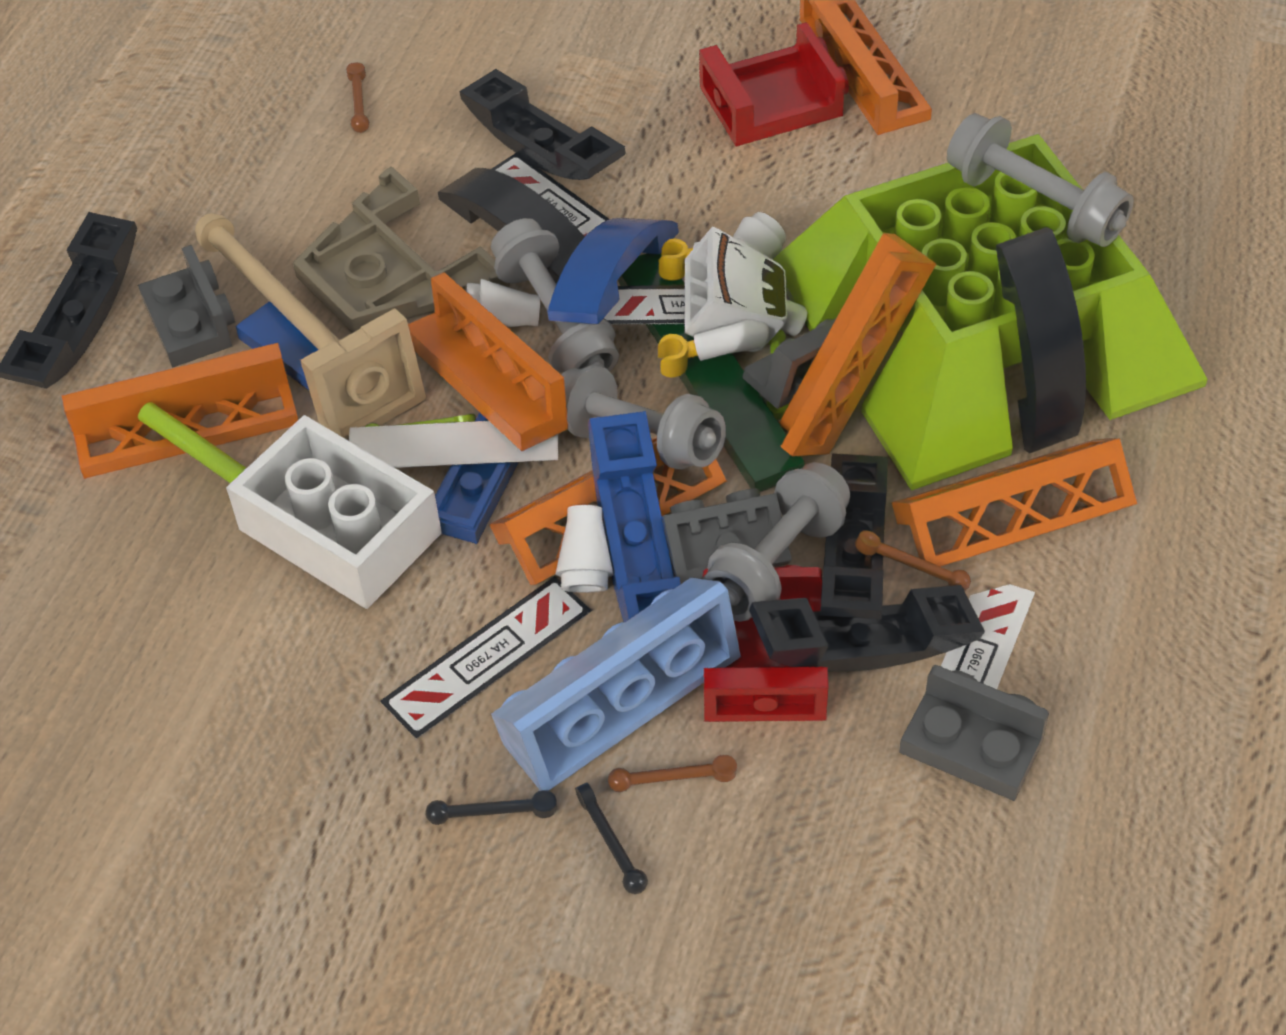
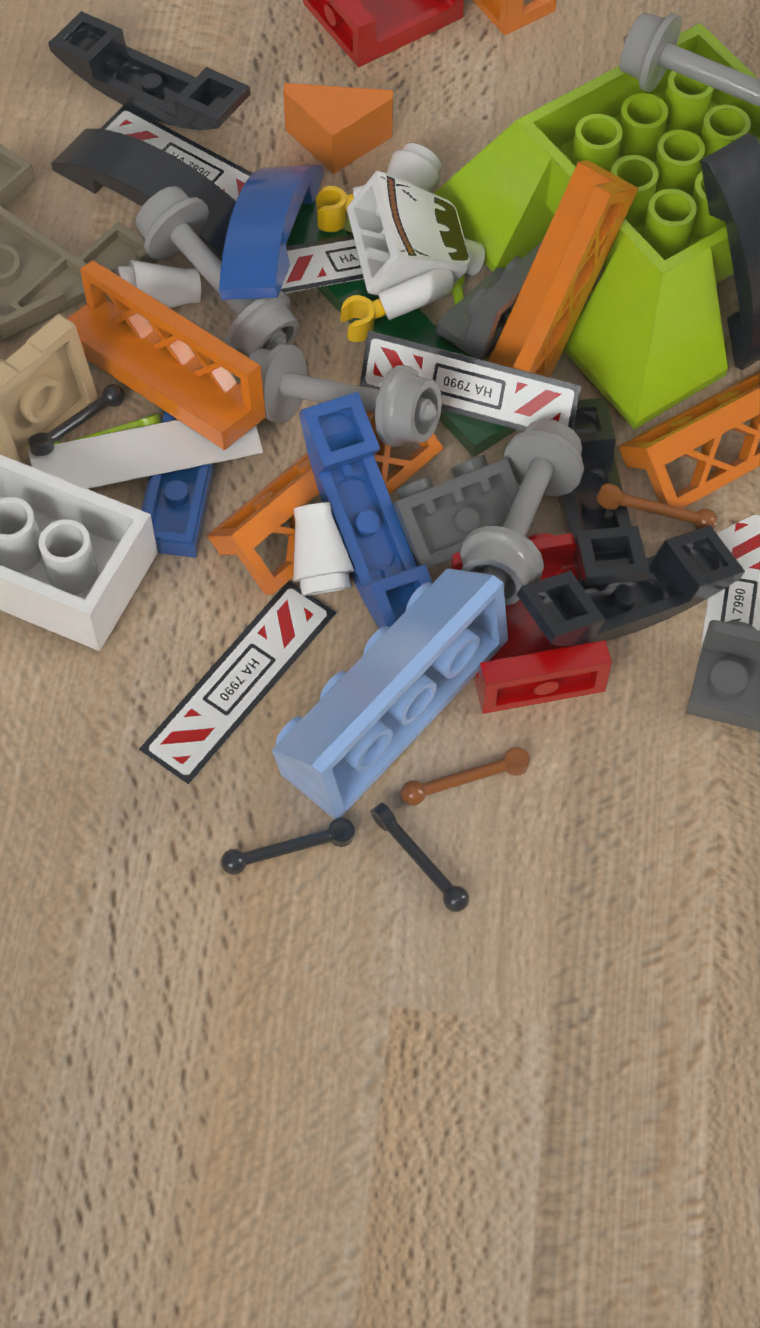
camera: 15 degrees left, 10 degrees up
(363, 423) = (42, 443): none -> black hinge
(702, 187) = (338, 121): none -> orange slope
(766, 427) = (474, 385): none -> sticker

